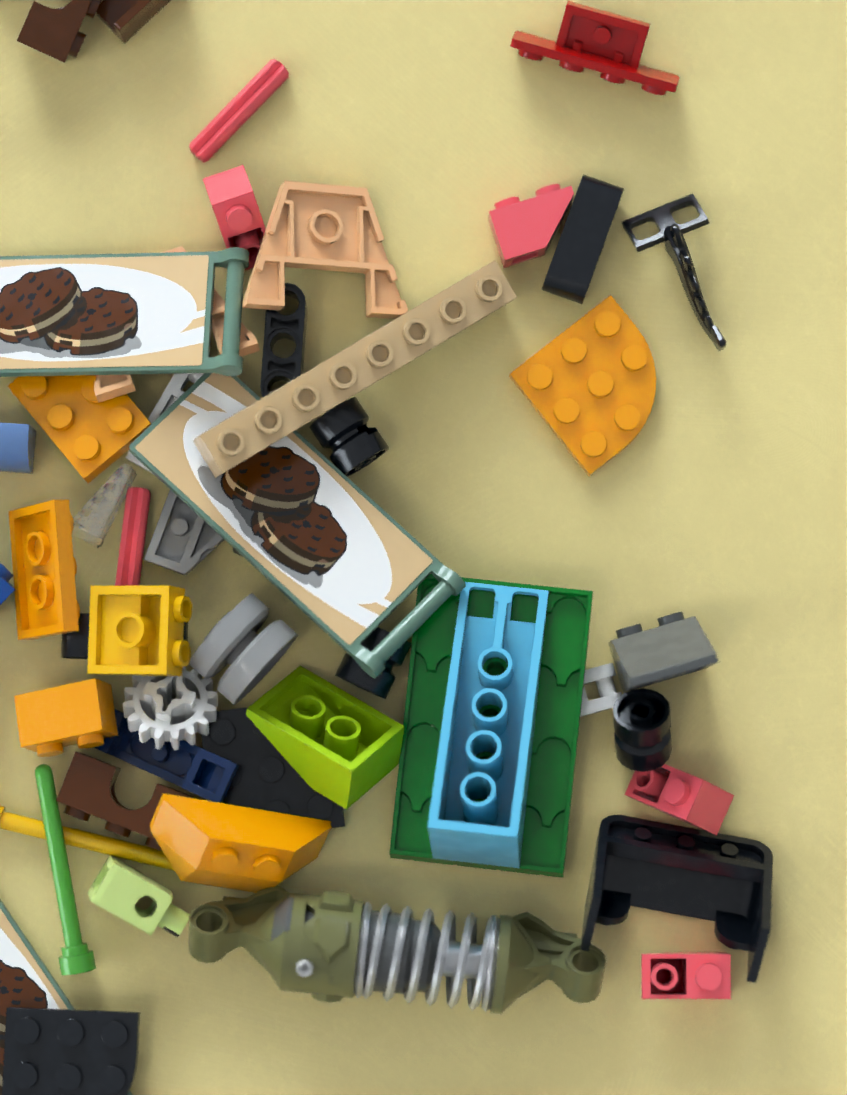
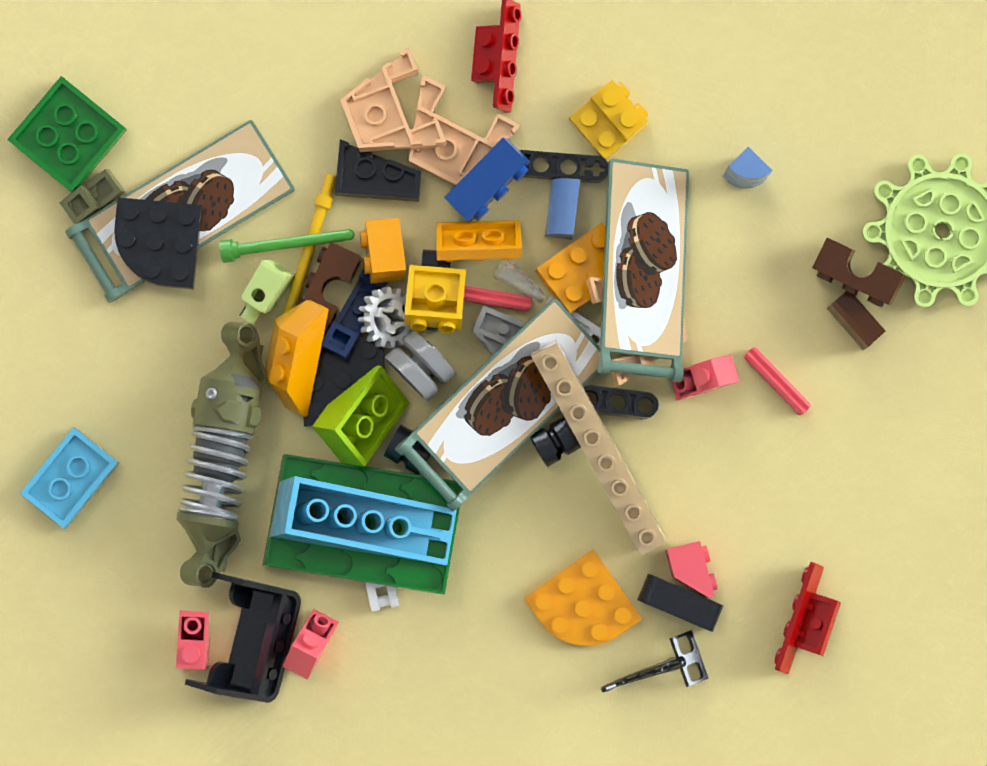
camera: 90 degrees right, 0 degrees up
(323, 231) = (692, 433): light nougat wing -> none
(642, 729) = (353, 621): black wheel -> none
(660, 652) = (402, 636): slope -> none

